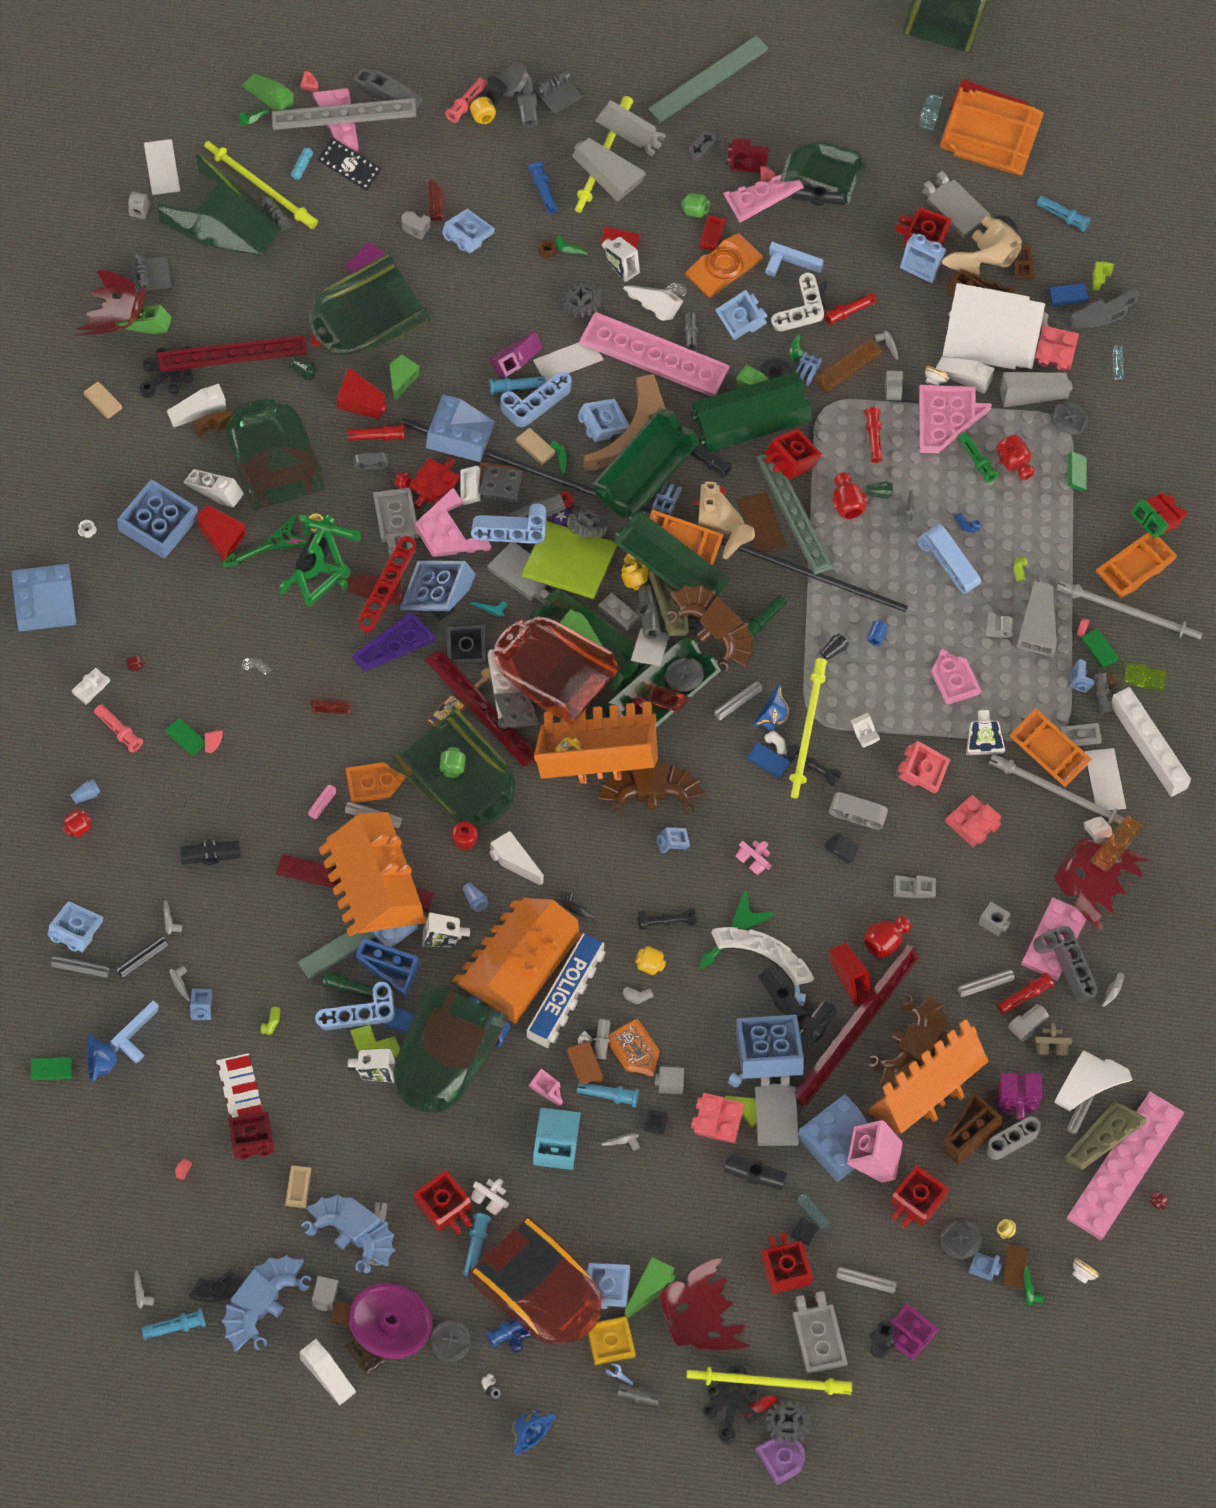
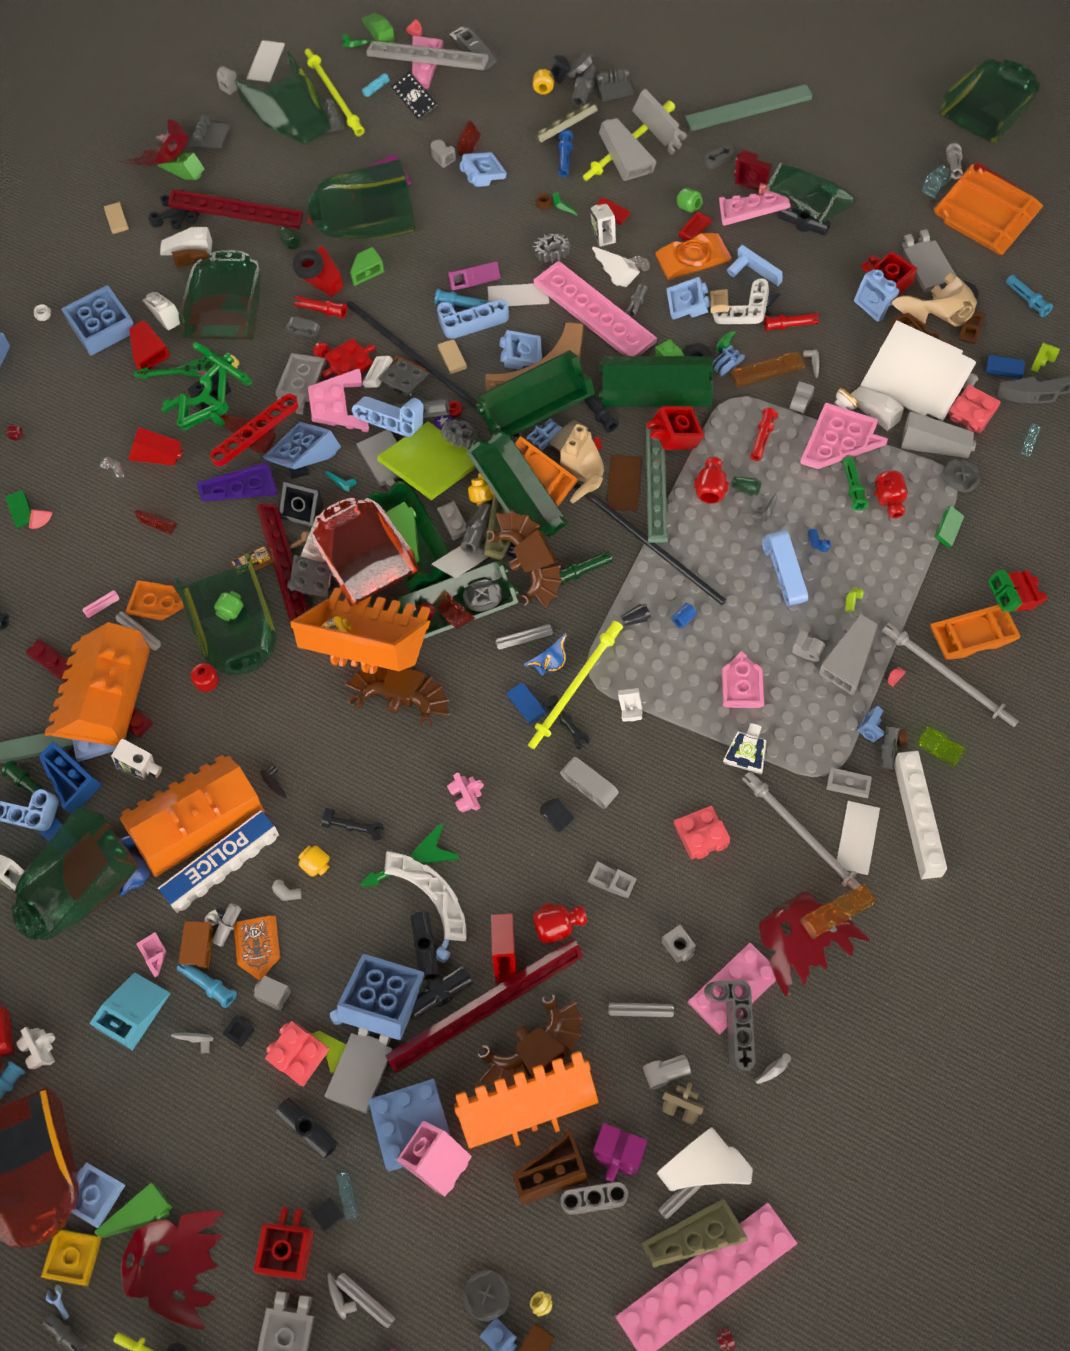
camera: 30 degrees right, 0 degrees up
(291, 634) = (155, 448): none -> red slope
(351, 403) = (307, 255): none -> black tyre
(365, 1040) = (12, 845): lime tile -> none
(459, 429) = (389, 321): medium blue slope -> none
(462, 104) = (528, 73): coral pin -> none
(475, 897) = (185, 741): medium blue cone -> none
(514, 858) = (238, 709): white slope -> none
(534, 146) = (570, 119): none -> wing
(562, 455) = (470, 371): green bar -> none
(673, 839) = (397, 748): medium blue bracket -> none
(689, 494) = (561, 437): none -> dark tan slope
(773, 308) = (719, 301): none -> tan tile
(779, 741) = (543, 687): white arm -> none
(850, 1292) = (337, 1297): none -> light grey bar
(918, 1208) = (457, 1242): red hinge -> none
(923, 767) = (673, 761): coral plate -> none
(939, 82) = (954, 158): none -> light grey pin
(1032, 989) = (688, 1035): red pin -> none
(1050, 747) = (811, 785): orange slope -> none
(1098, 829) = (827, 887): white bracket -> none
(1099, 648) = (904, 702): green tile -> none

